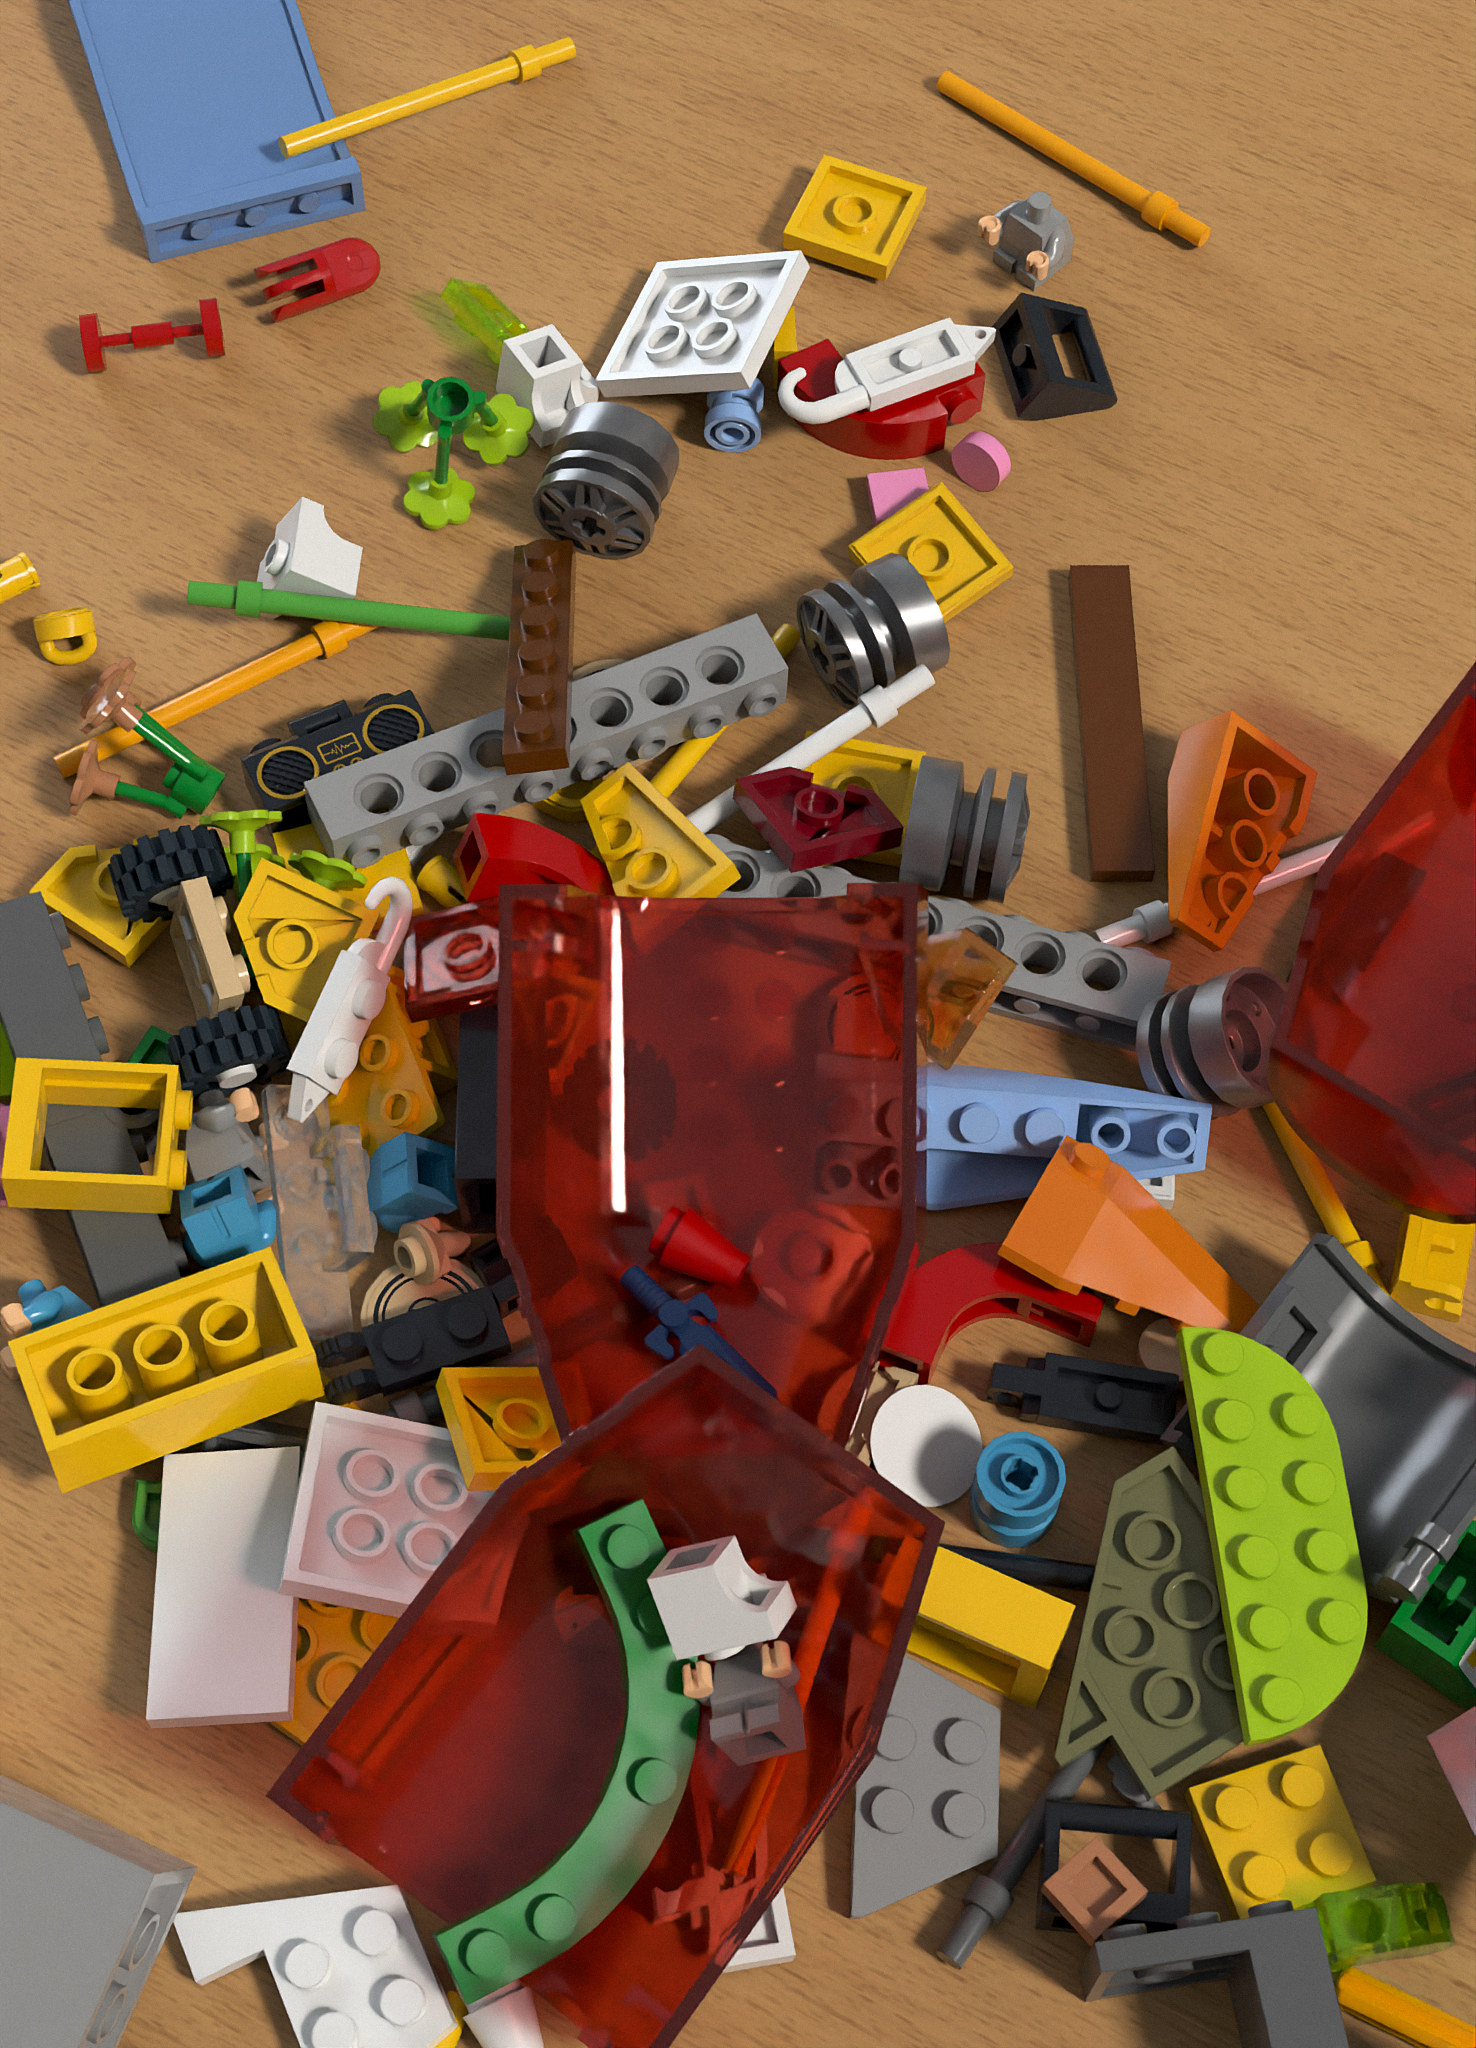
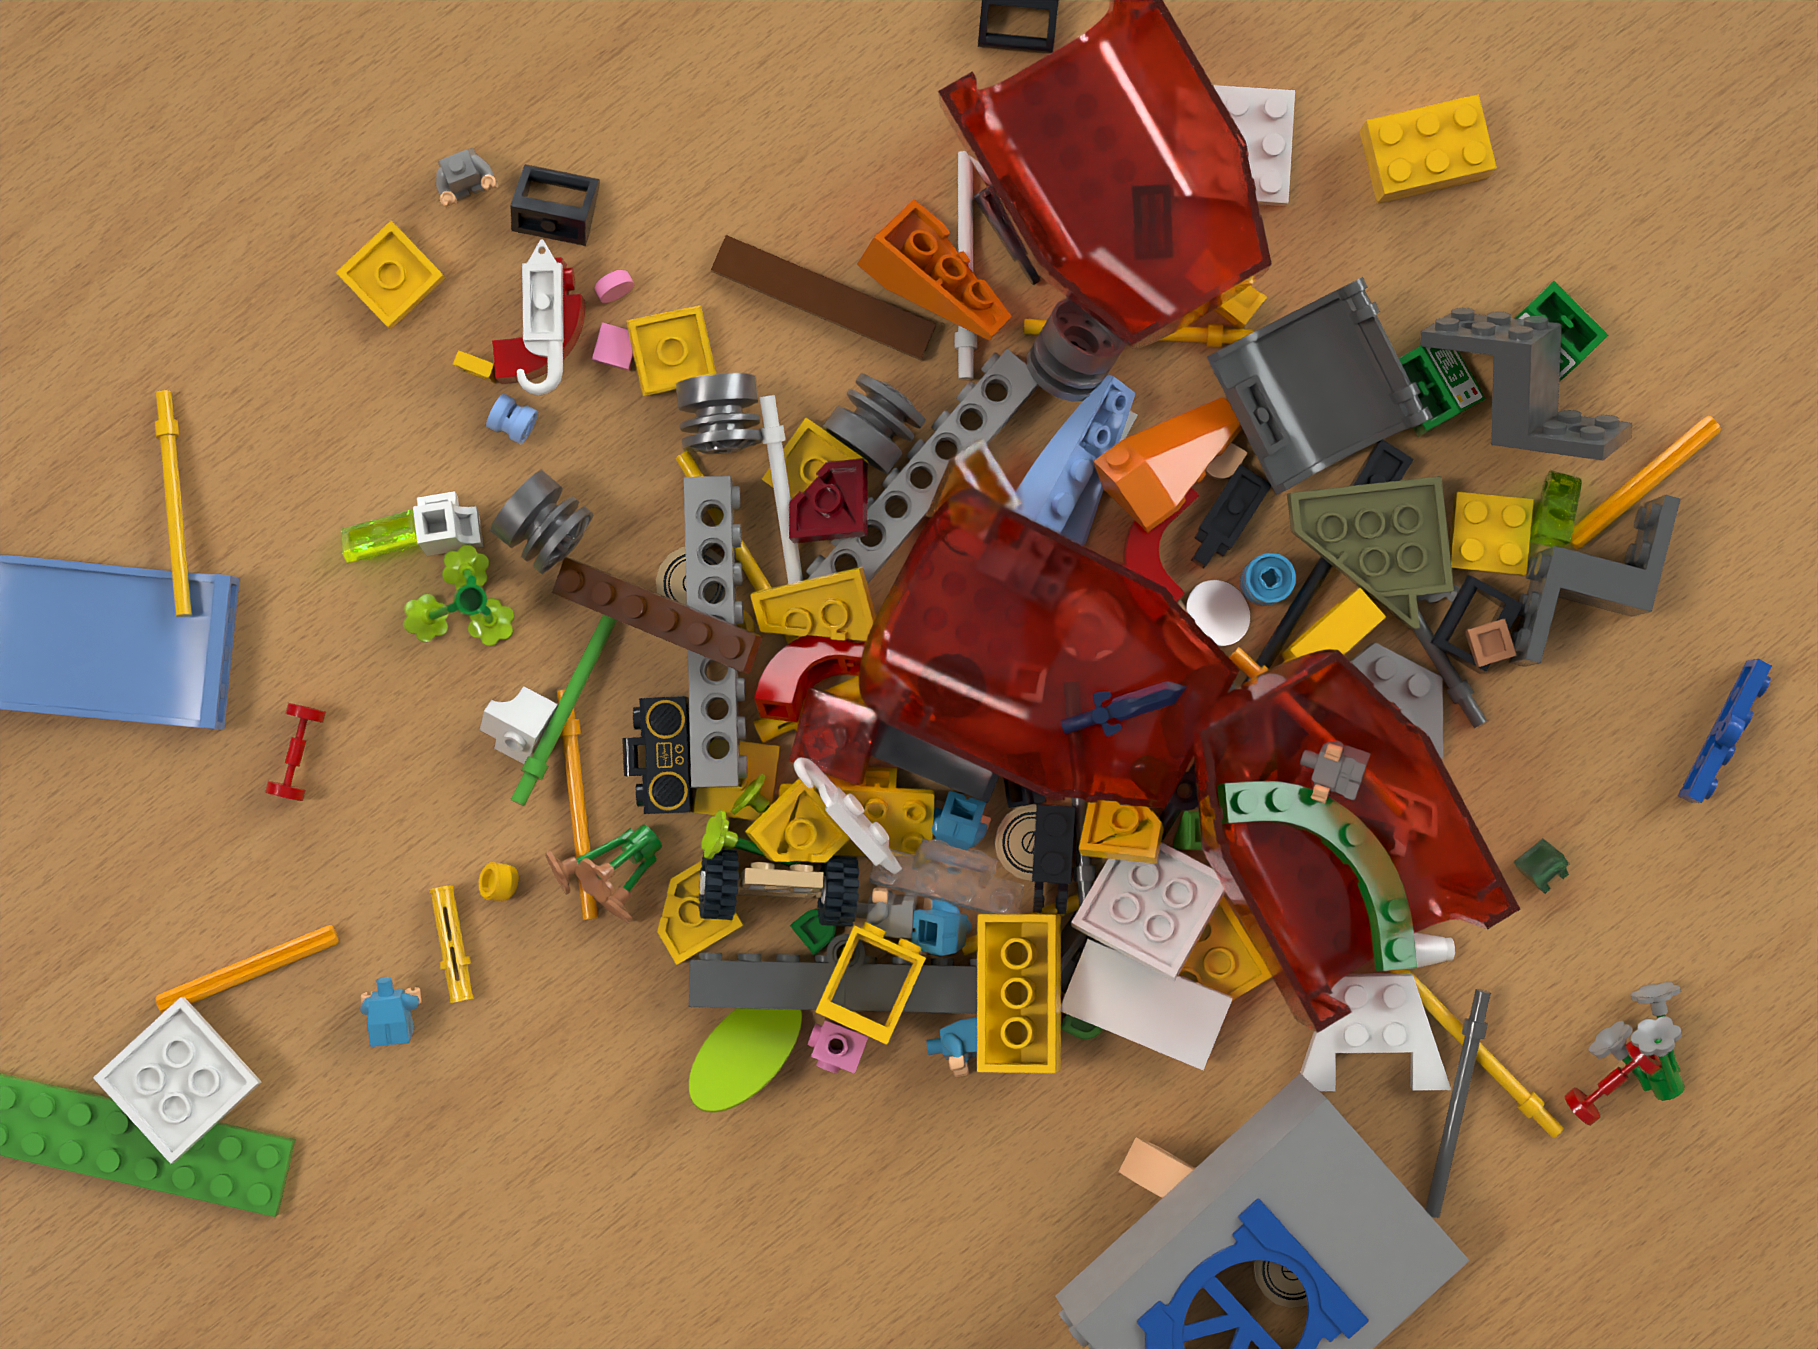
camera: 60 degrees left, 25 degrees up
(334, 270) = (293, 631): red arm -> none
(425, 1252) = (1000, 829): tan plate -> none
(698, 1249) = (1066, 686): red cone -> none
(703, 324) = (447, 412): white plate -> none
(717, 1601) = (1294, 767): white brick -> none
(1156, 207) = (466, 80): light orange bar -> none
(1275, 1530) = (1356, 464): lime plate -> none

